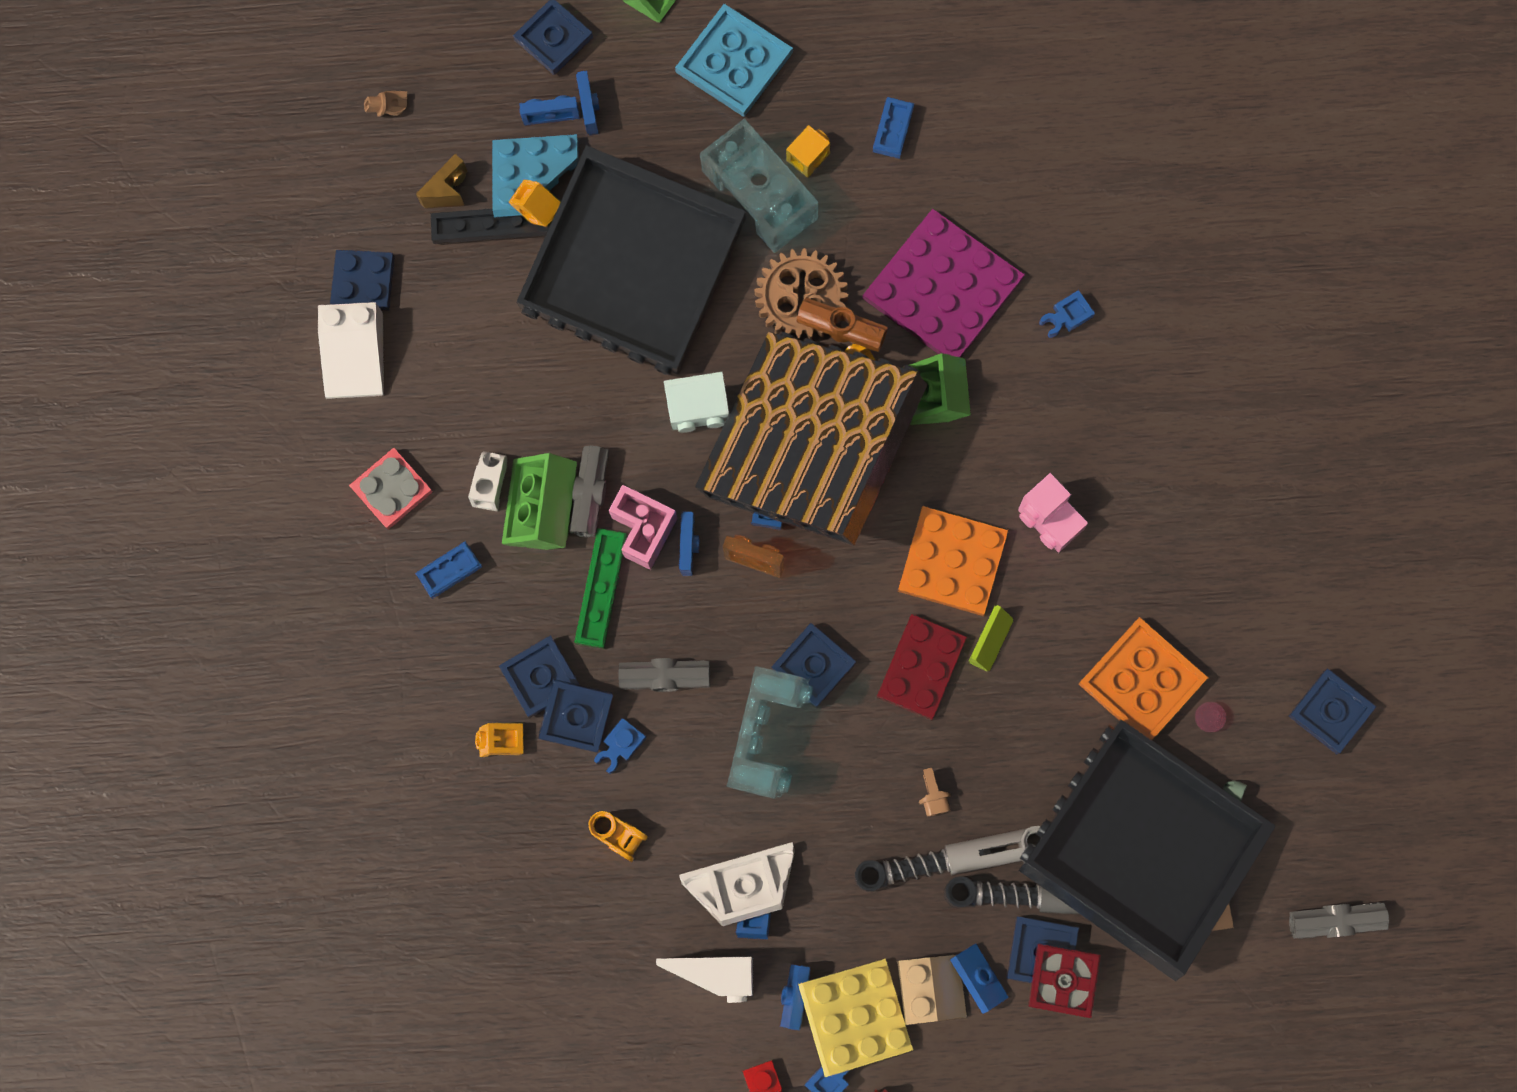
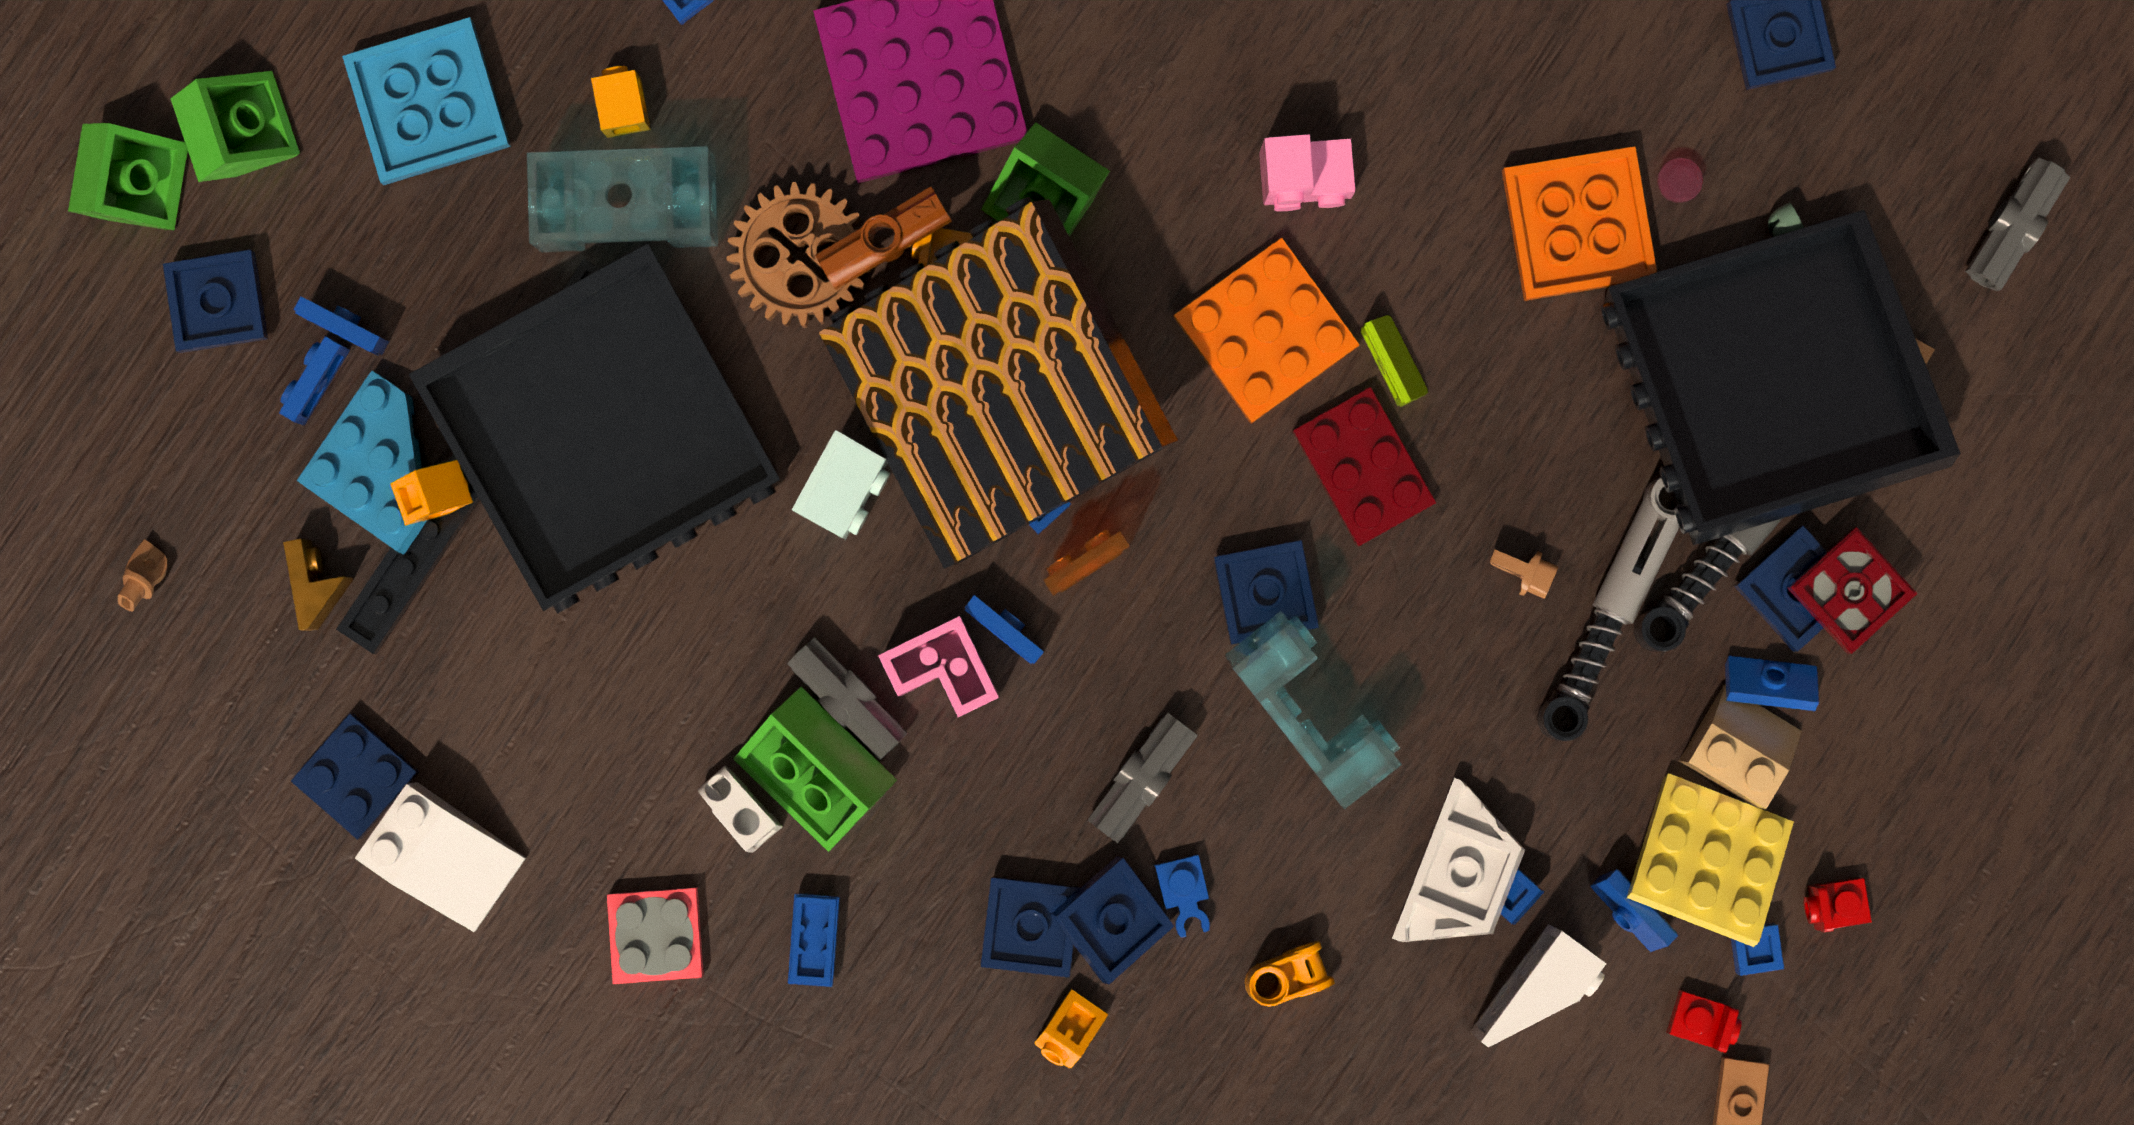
camera: 60 degrees left, 10 degrees up
(600, 589) = (976, 773): green tile -> none

